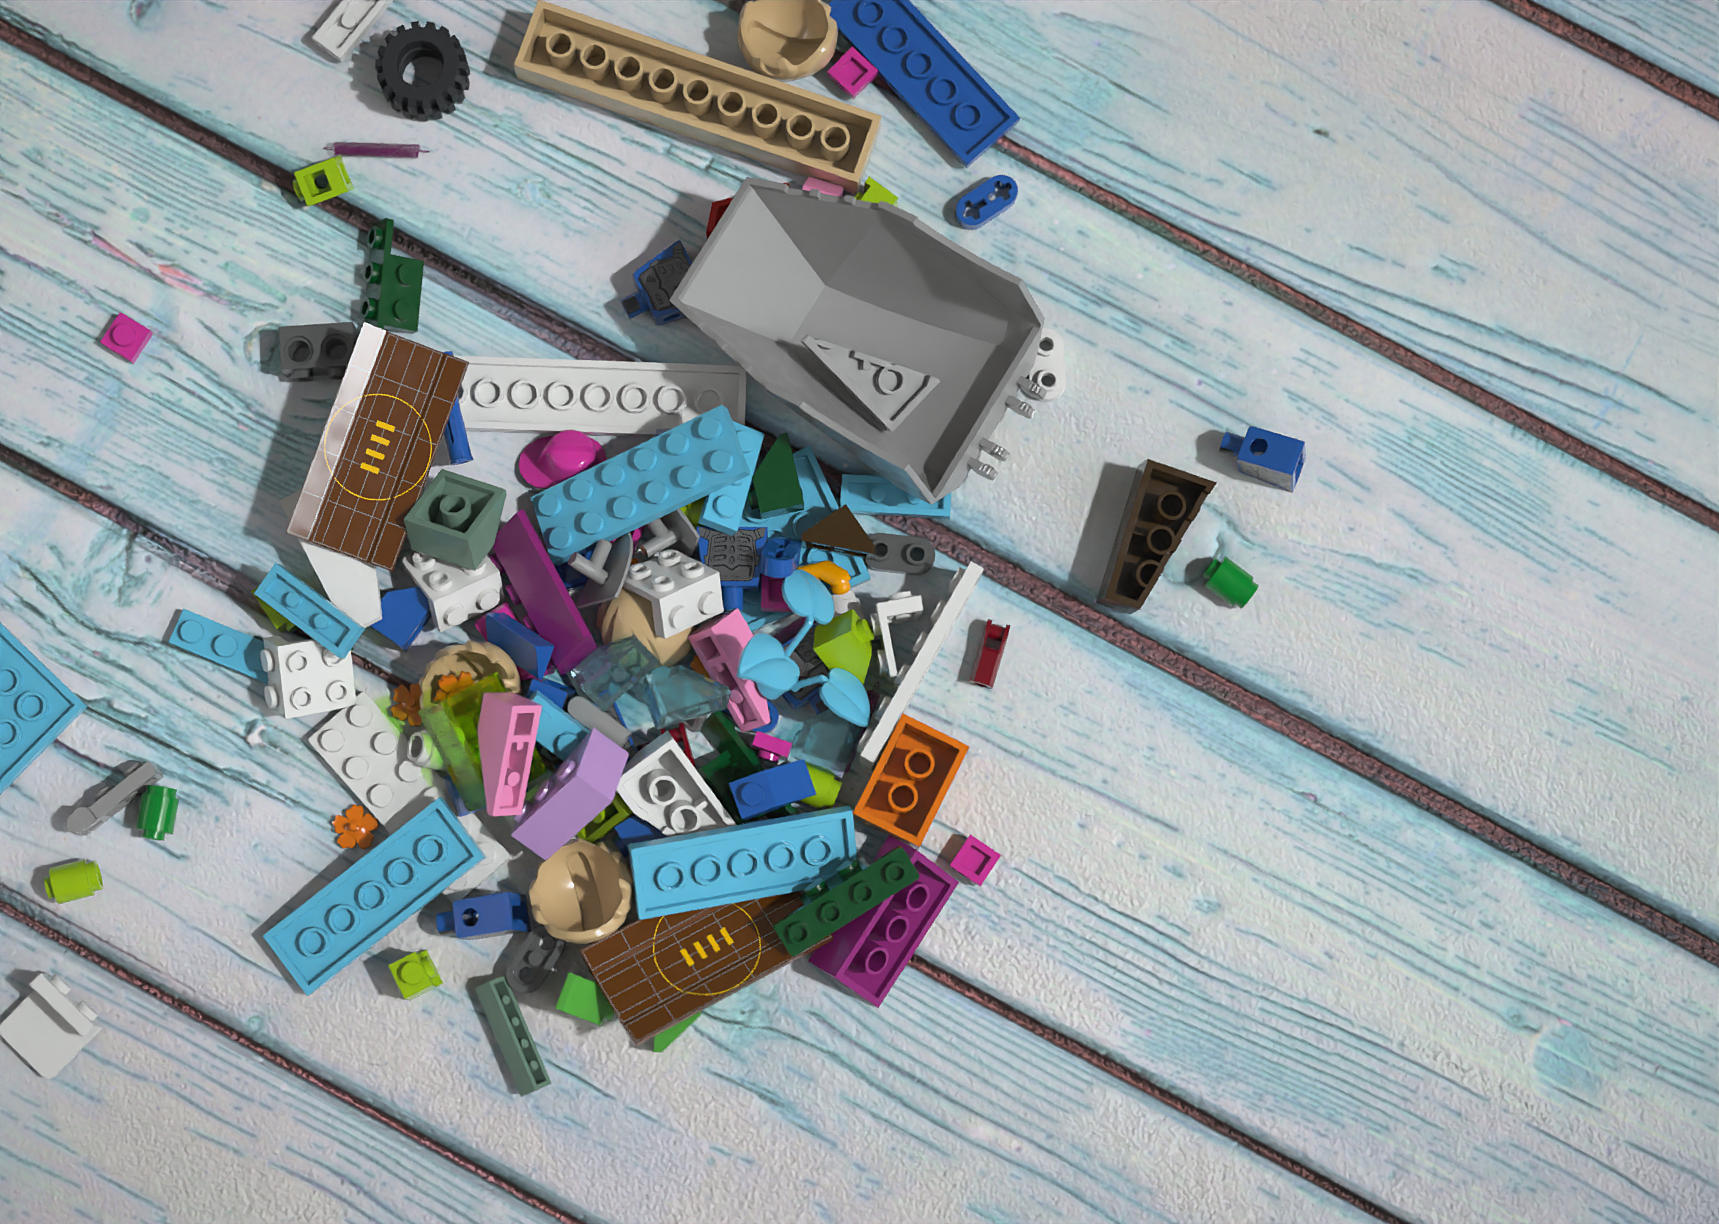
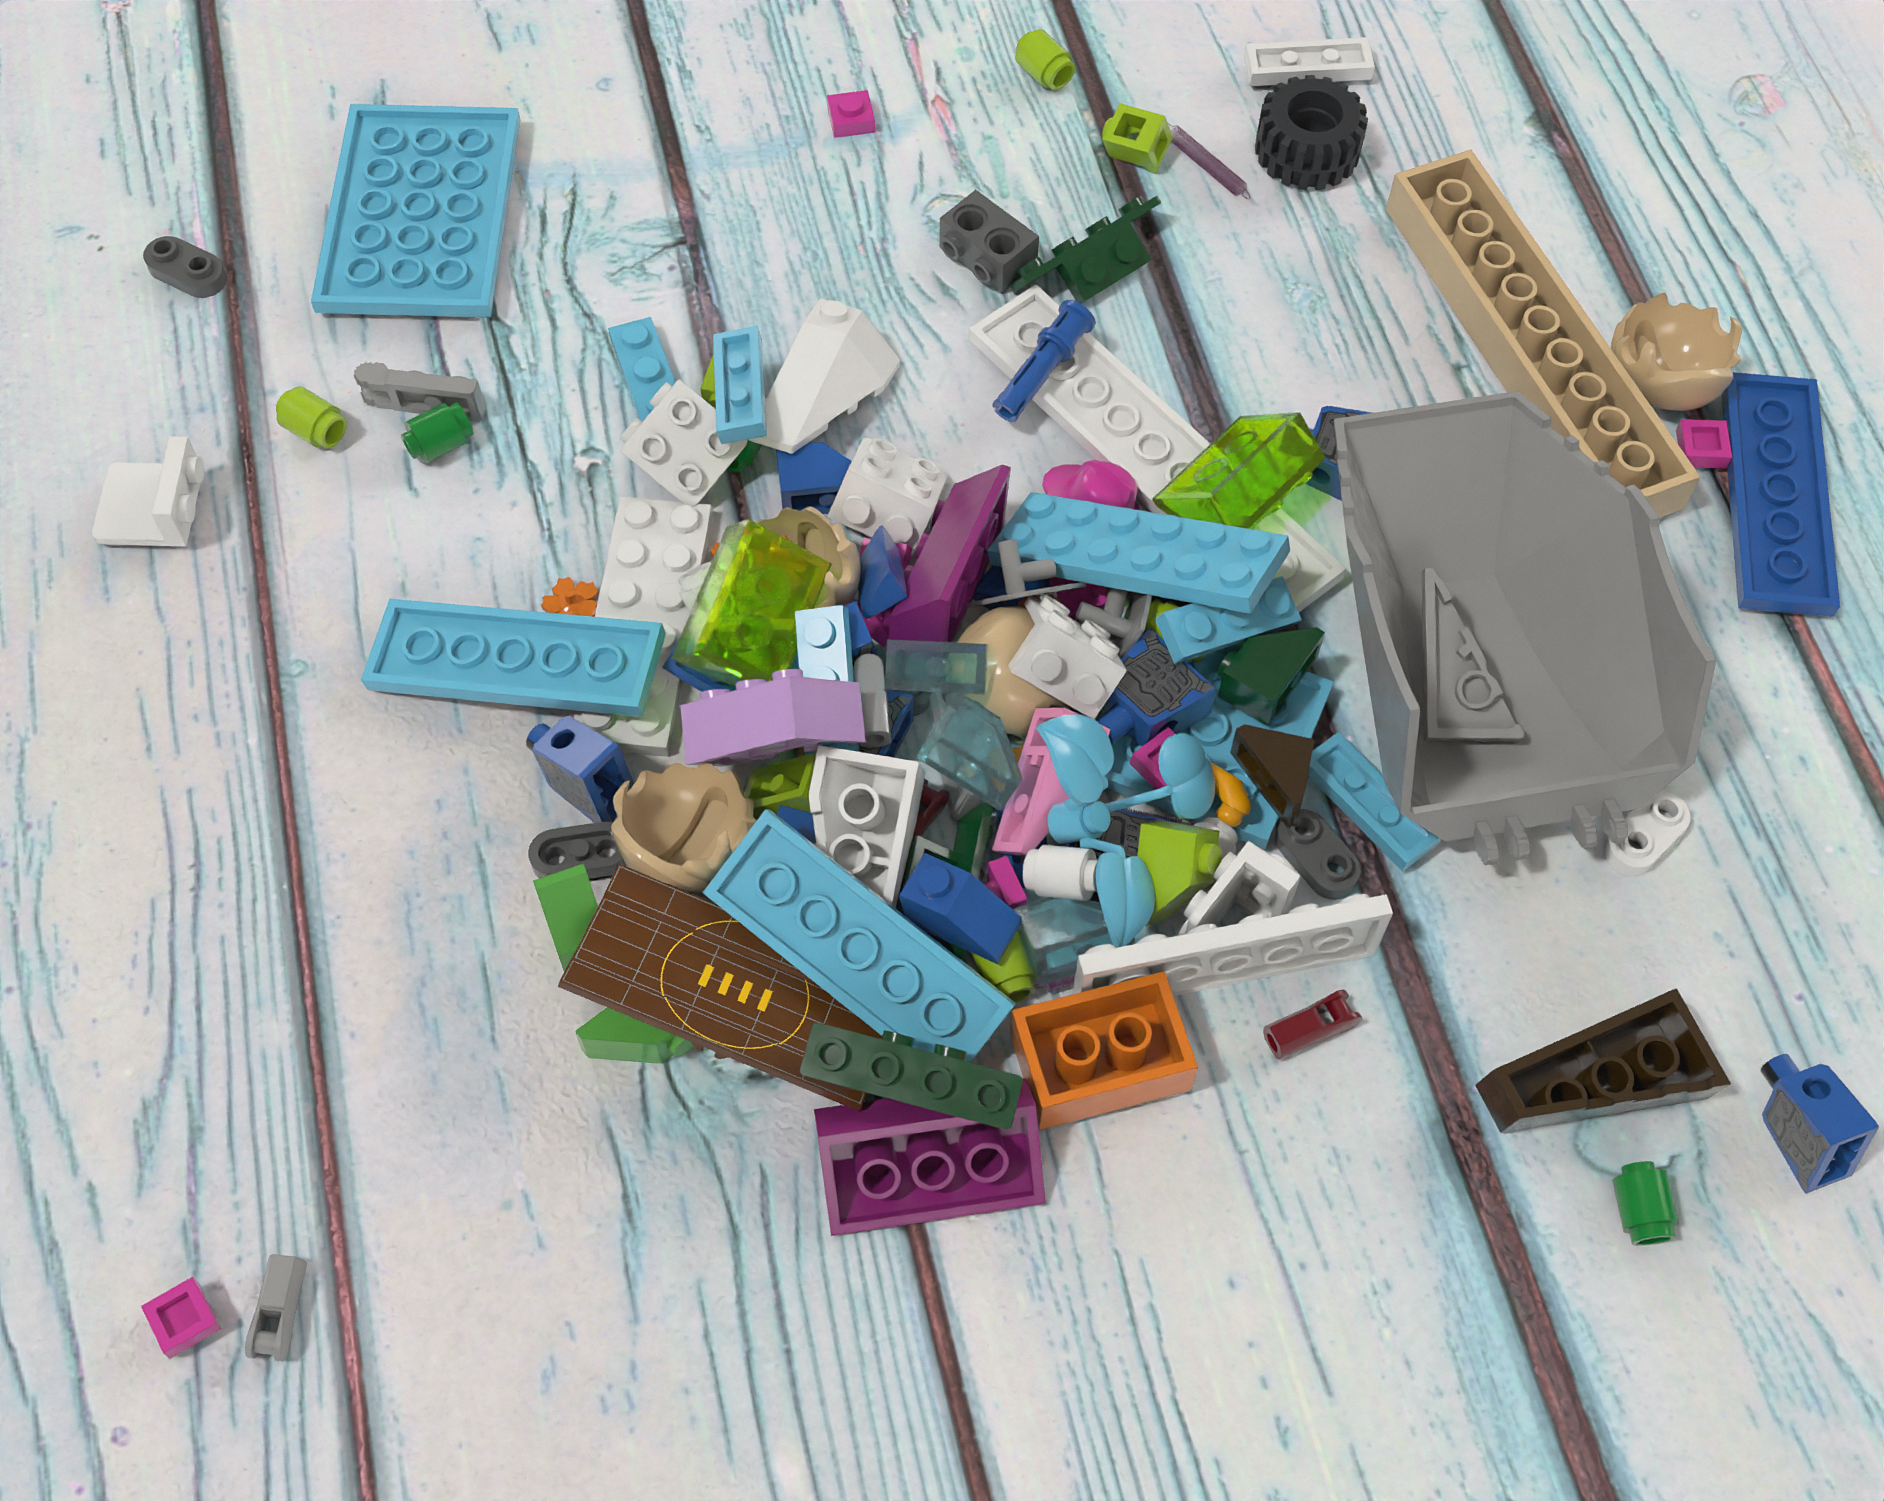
camera: 55 degrees right, 20 degrees down
(202, 176) = (1044, 59): none -> lime brick
(377, 446) = (944, 316): reddish brown hinge -> none
(415, 974) = (464, 755): lime brick -> none
(456, 519) = (943, 434): sand green slope -> none
(506, 747) = (756, 620): bright pink slope -> none
(513, 1036) = (478, 895): sand green piece -> none
(637, 372) = (1244, 471): none -> clear neon green slope
(780, 557) = (1199, 724): blue beam -> none
(798, 713) = (1061, 872): none -> white brick
(975, 860) = (1084, 1195): dark pink plate -> none
(981, 195) = (1730, 649): blue beam -> none

